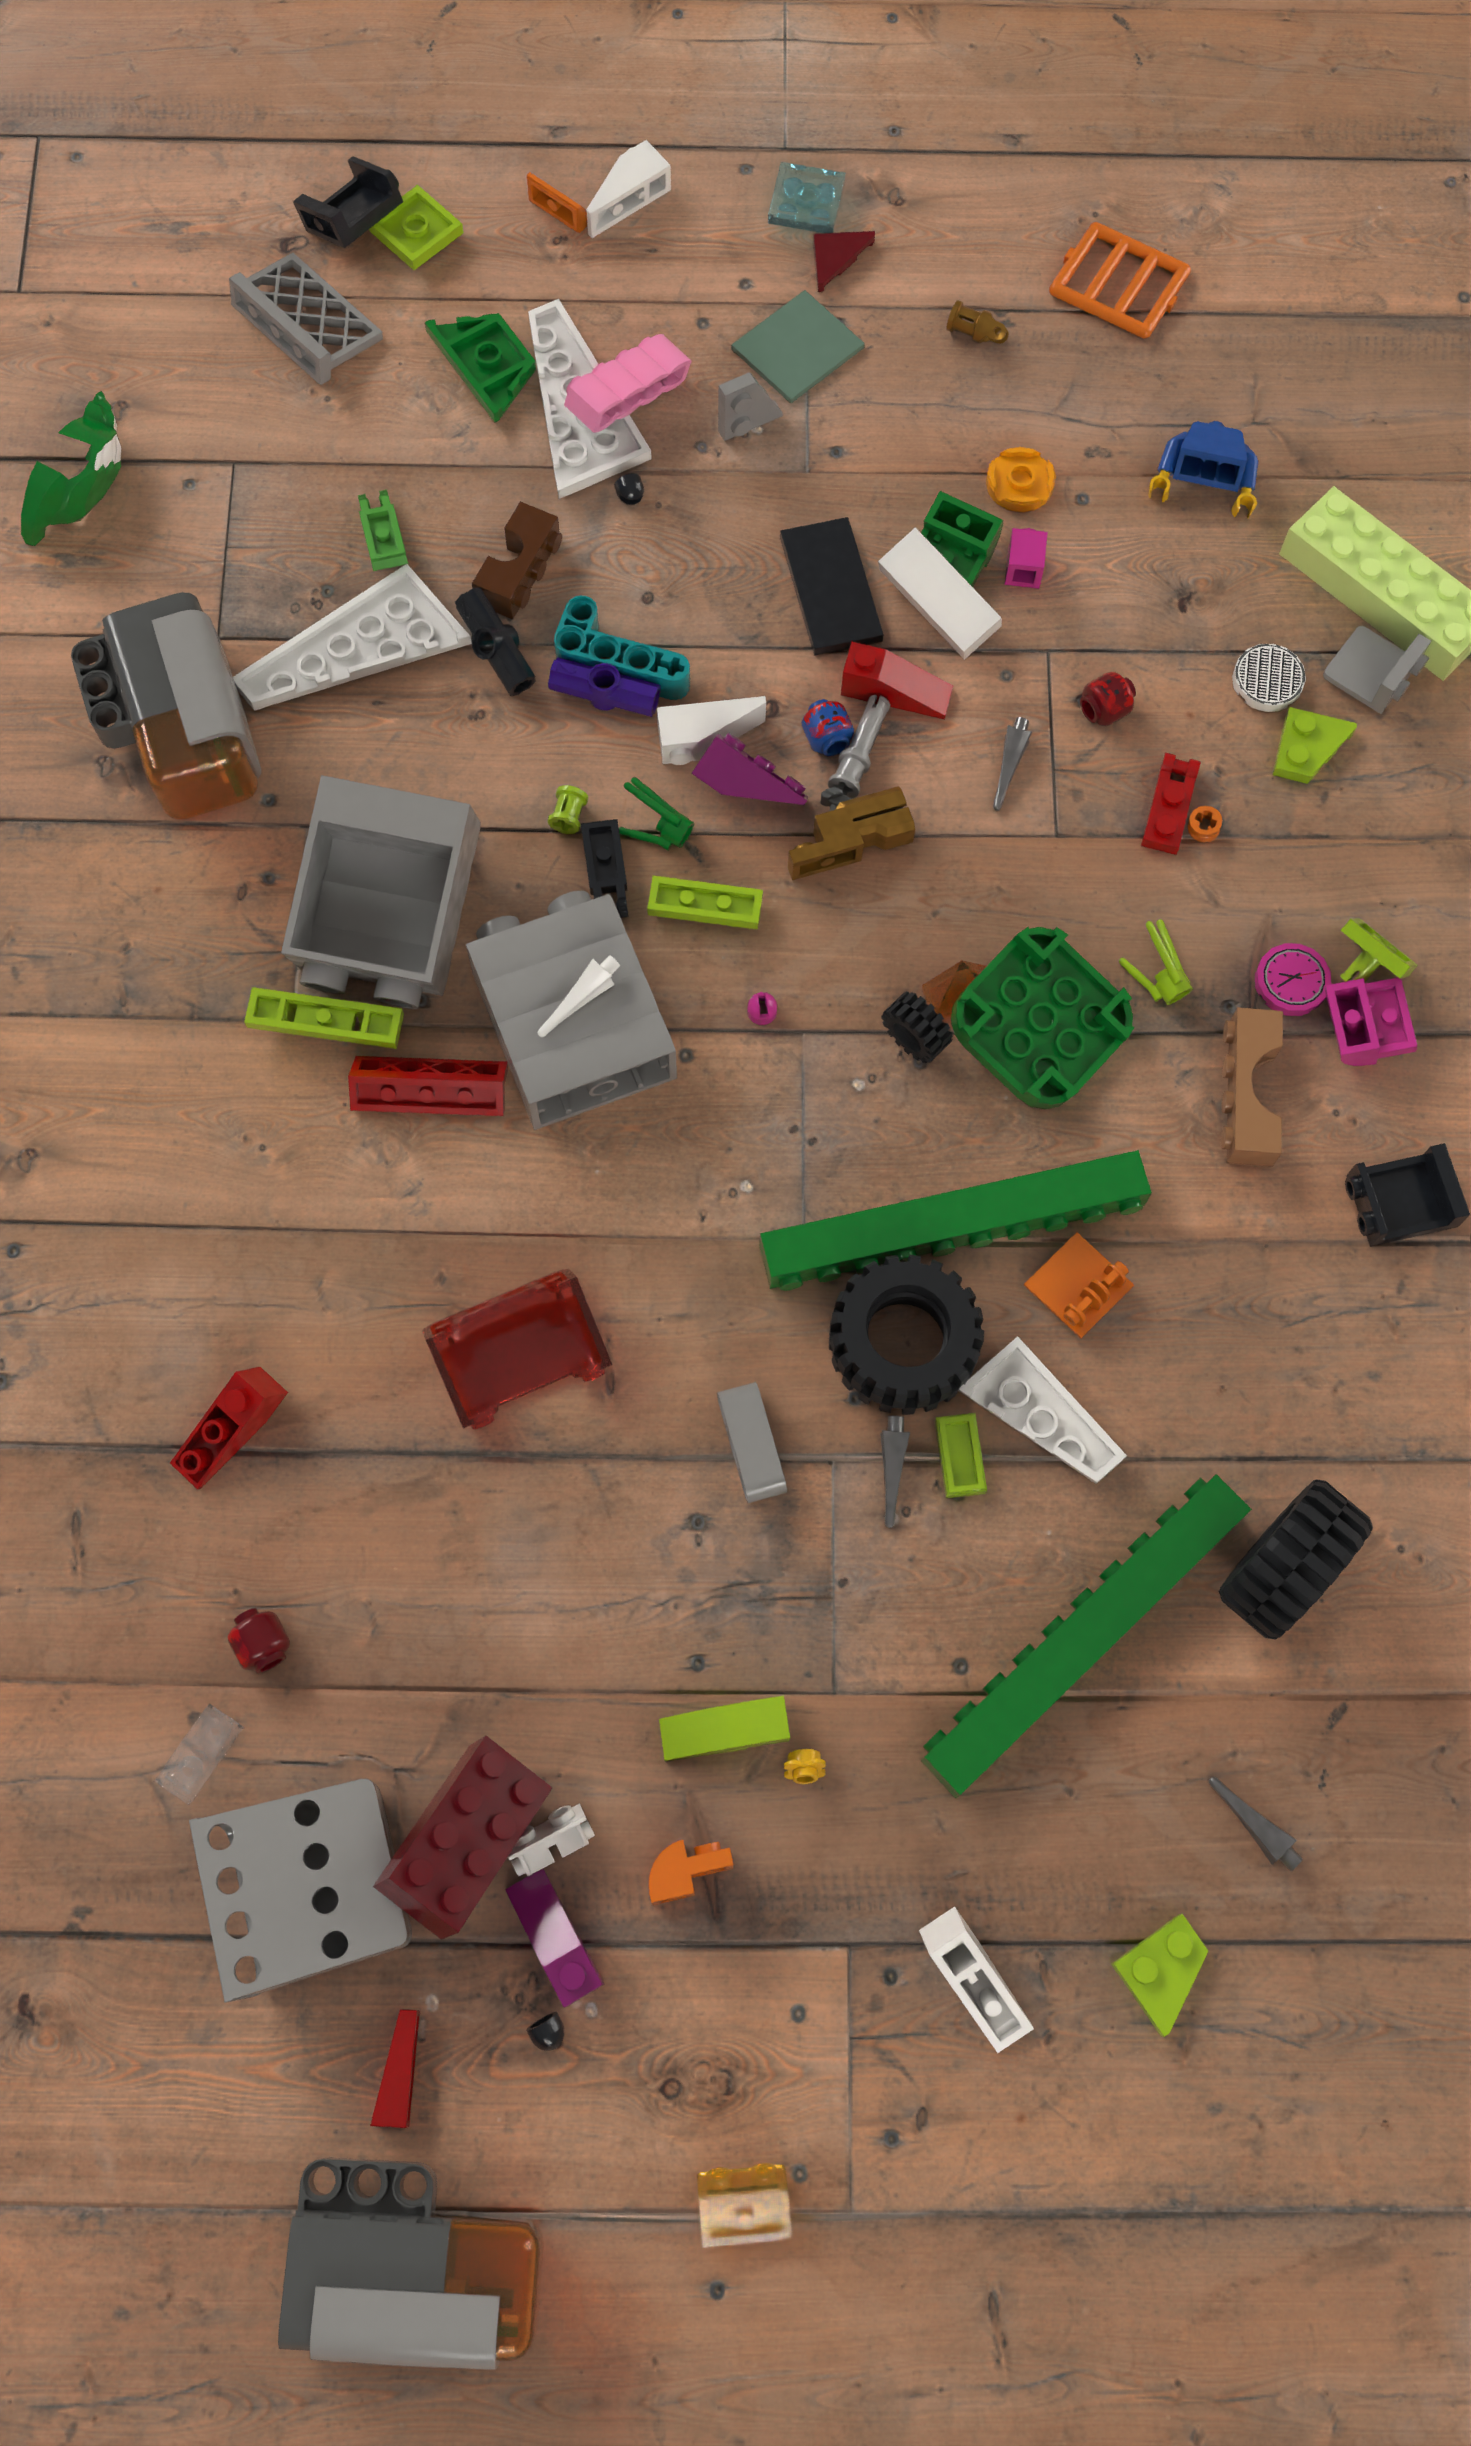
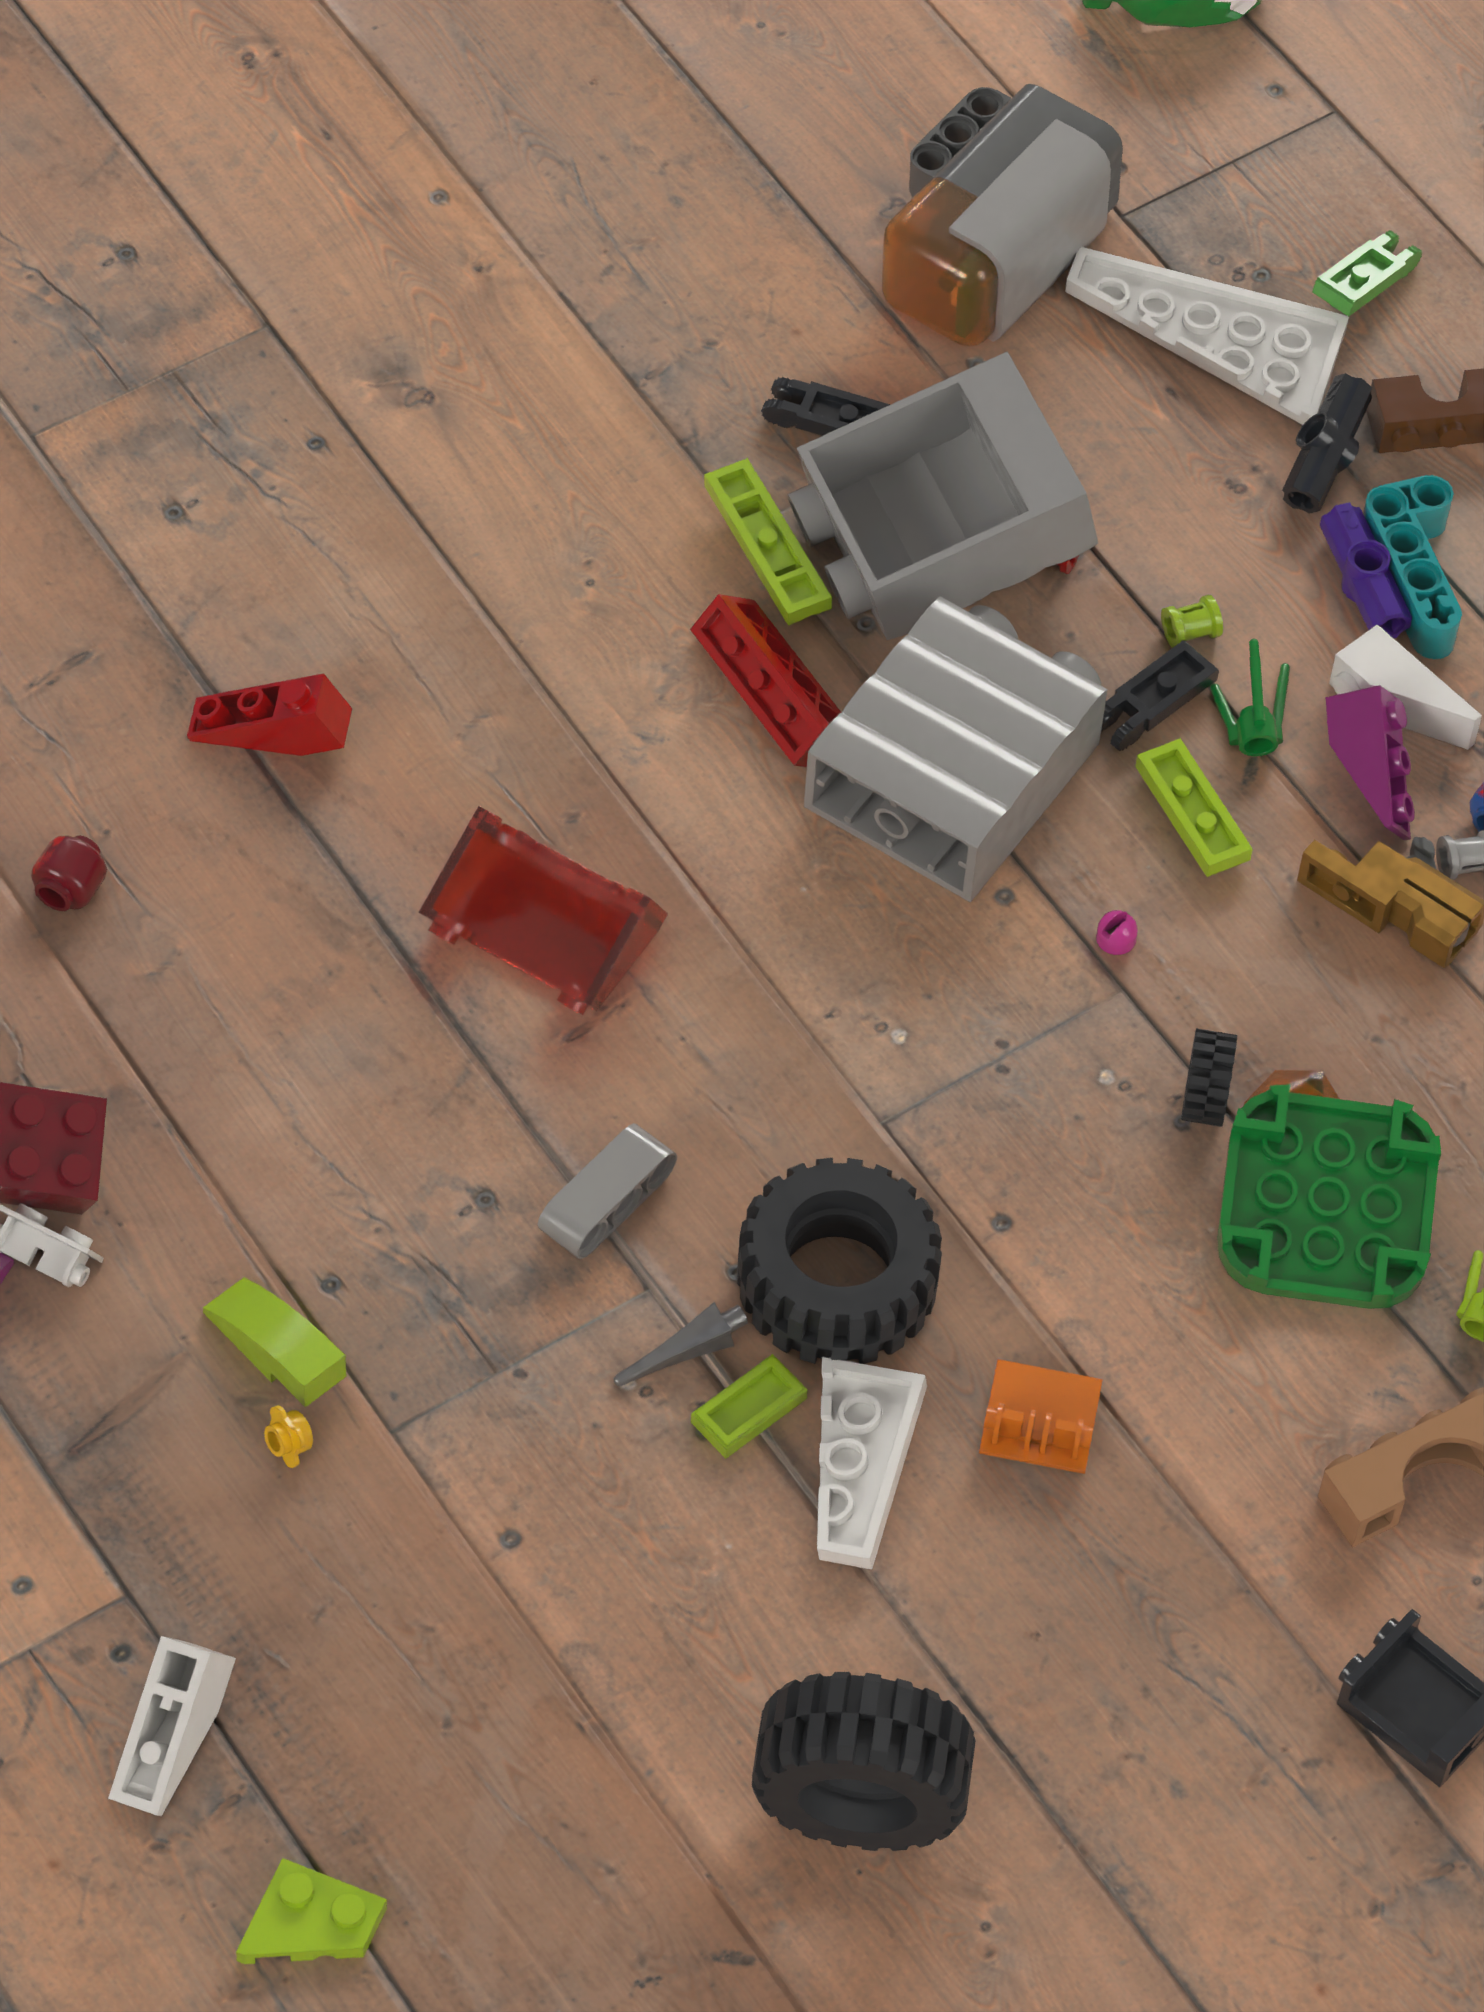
camera: 55 degrees right, 15 degrees down
(246, 911) = (815, 406): none -> black hinge
(590, 984) = (982, 722): white piece -> none
(673, 1870) = (89, 1368): orange brick -> none
(955, 1220) = (1025, 1251): green brick -> none
(1084, 1636) = (606, 1622): green brick -> none
(1270, 1838) = (535, 1949): flat silver piece -> none

